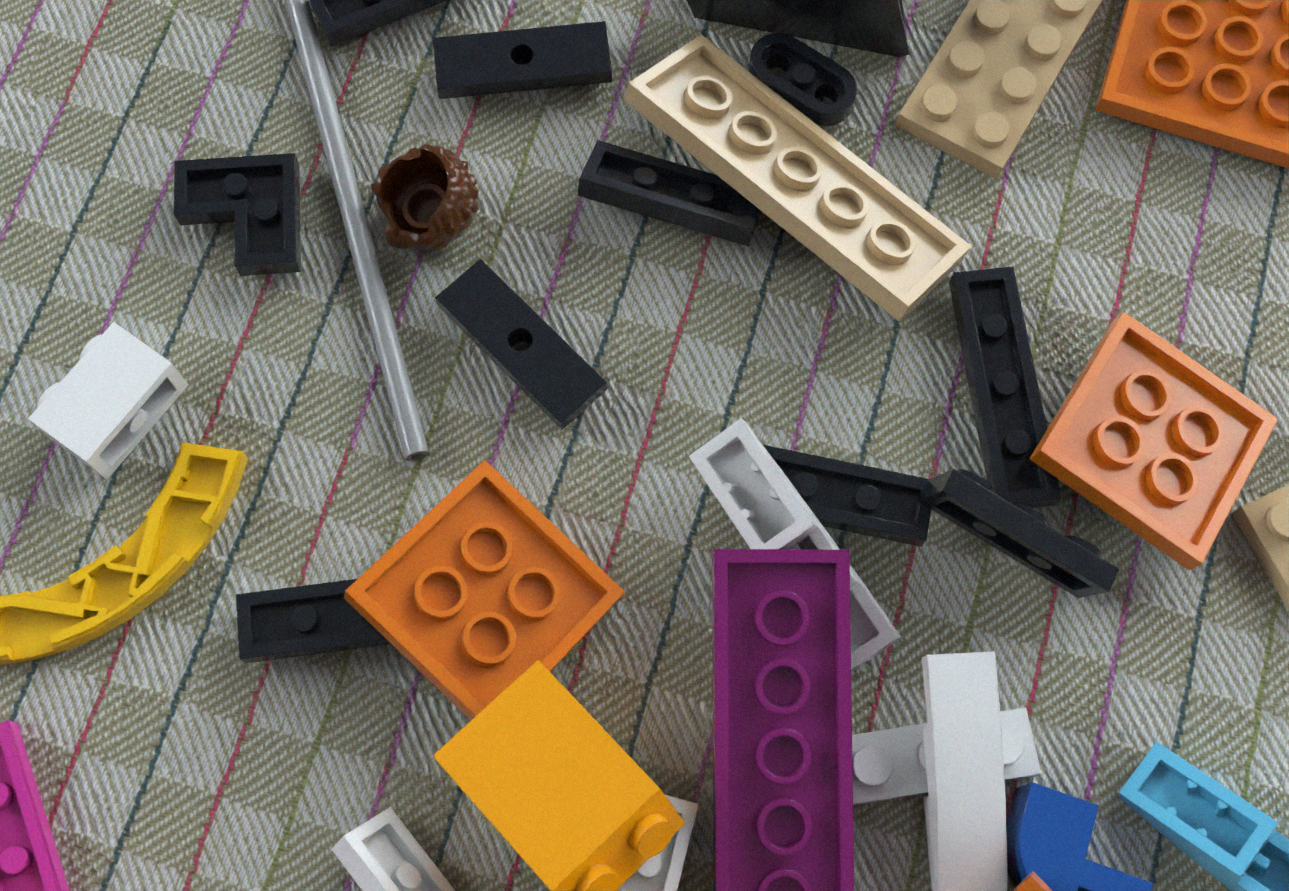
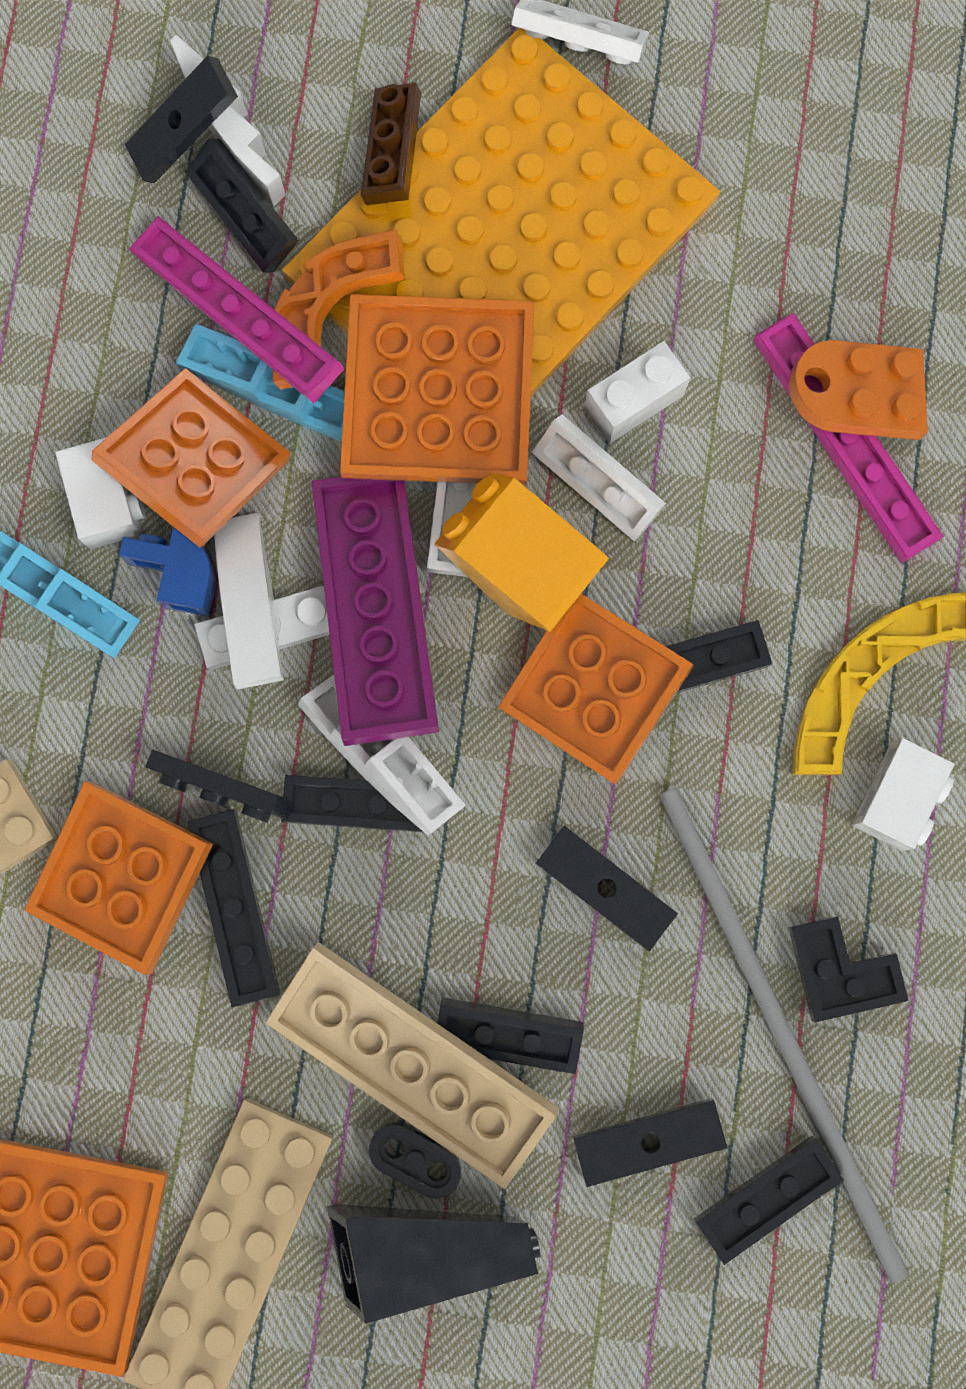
camera: 175 degrees right, 10 degrees up
(426, 198) = (700, 997): reddish brown hair -> none

